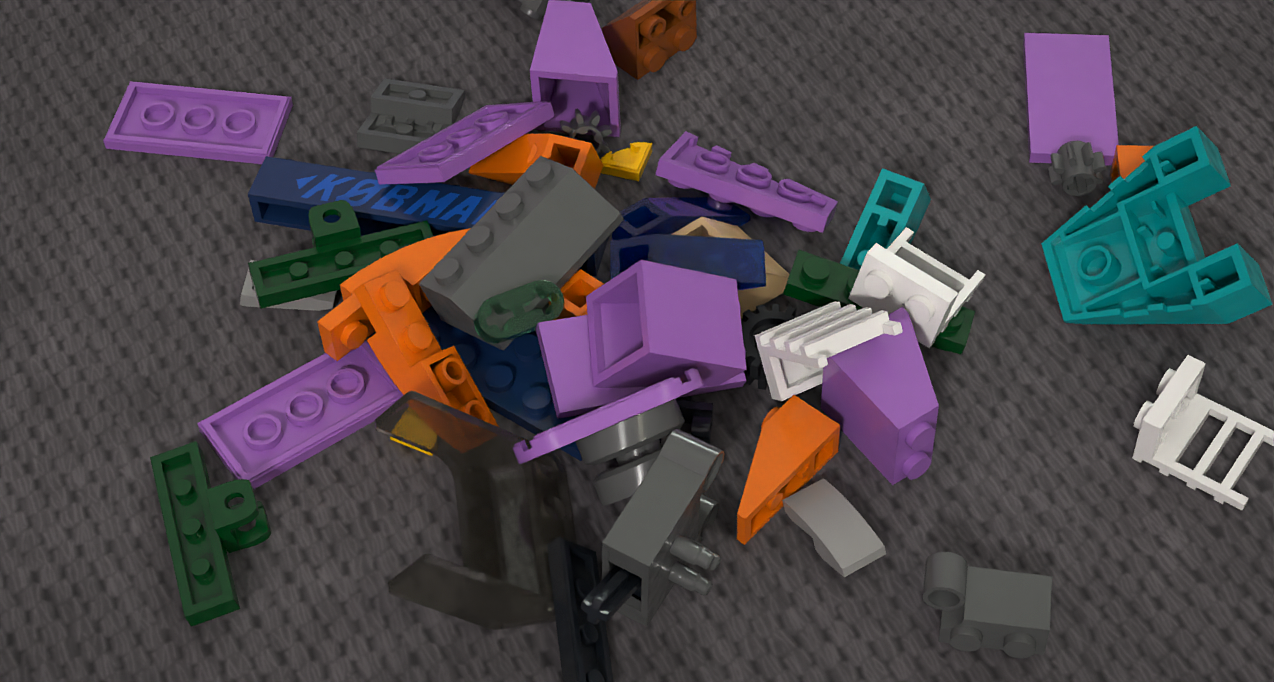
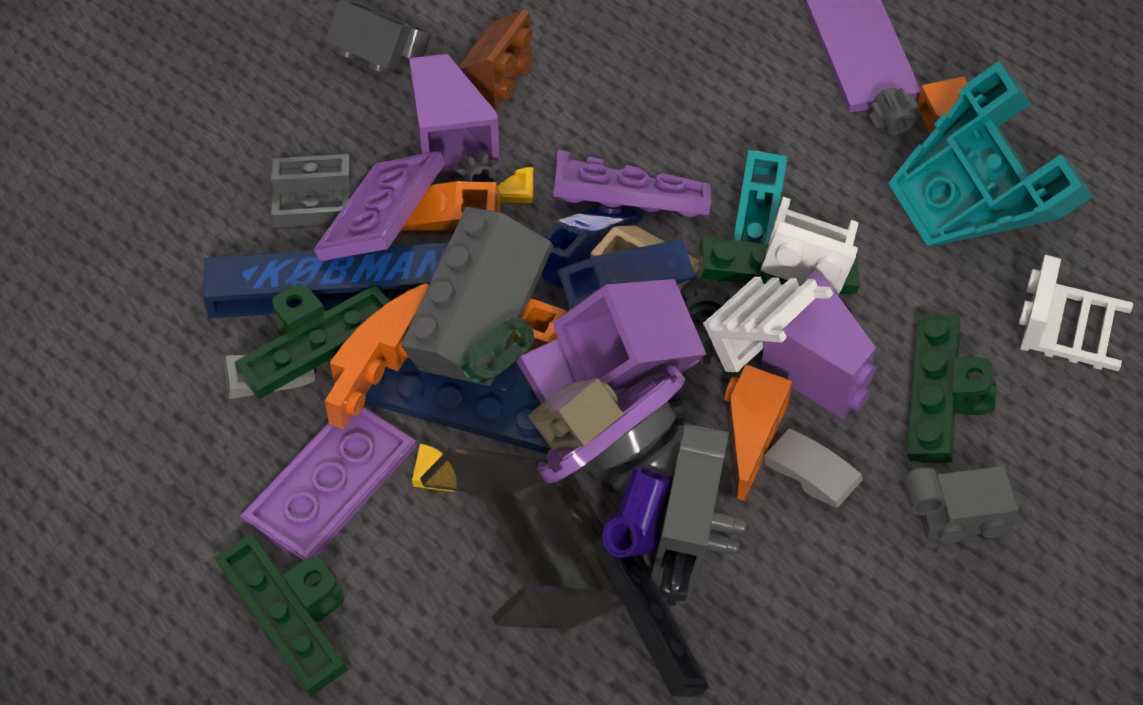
camera: 20 degrees left, 5 degrees up
(198, 122) = (118, 237): medium lavender tile -> none
(411, 350) = (412, 409): orange slope -> none
(569, 392) = (576, 414): none -> dark tan brick
(581, 537) = (638, 512): none -> dark purple piece
(1018, 475) = (943, 388): none -> dark green plate

